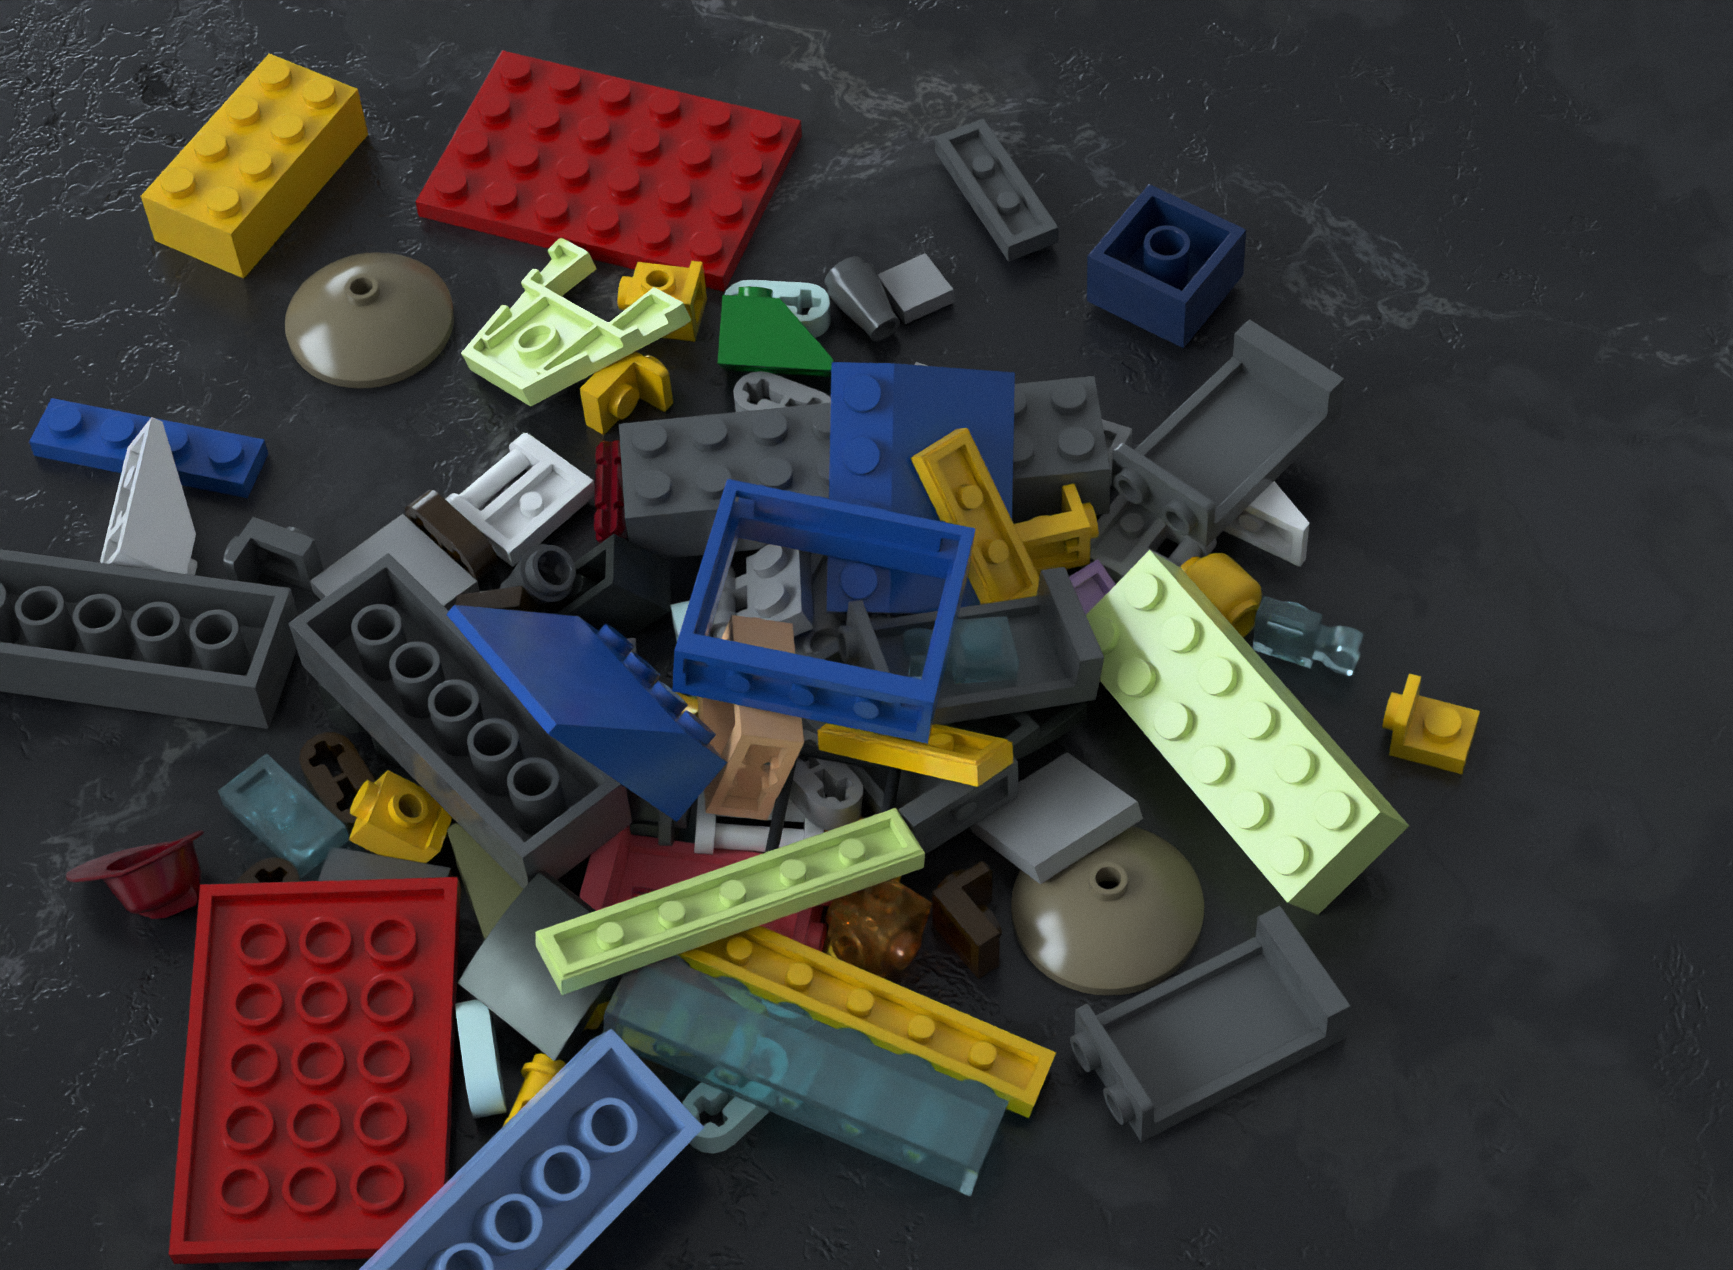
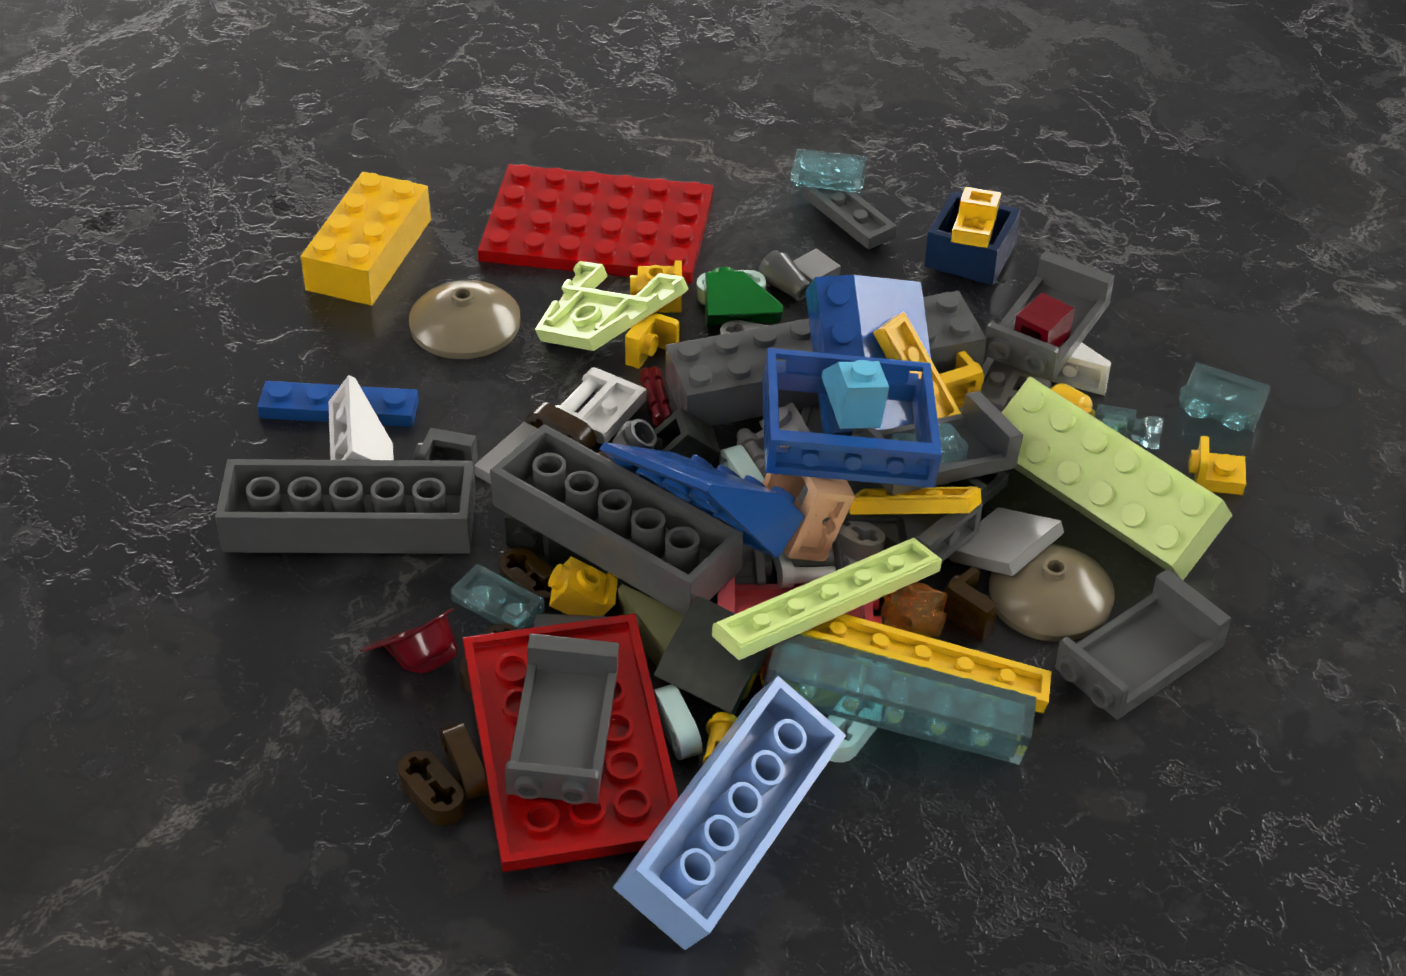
camera: 15 degrees left, 10 degrees down
(100, 1117) = (424, 792): none -> dark brown beam
(162, 1075) = (464, 760): none -> dark brown beam
(303, 1046) = (563, 719): none -> dark grey panel
(827, 586) = (856, 393): none -> medium azure slope
(979, 117) = (828, 170): none -> clear light blue bracket
(1166, 241) = (976, 217): none -> yellow slope
(1210, 451) = (1046, 320): none -> dark red brick
(1480, 599) = (1224, 397): none -> clear light blue bracket

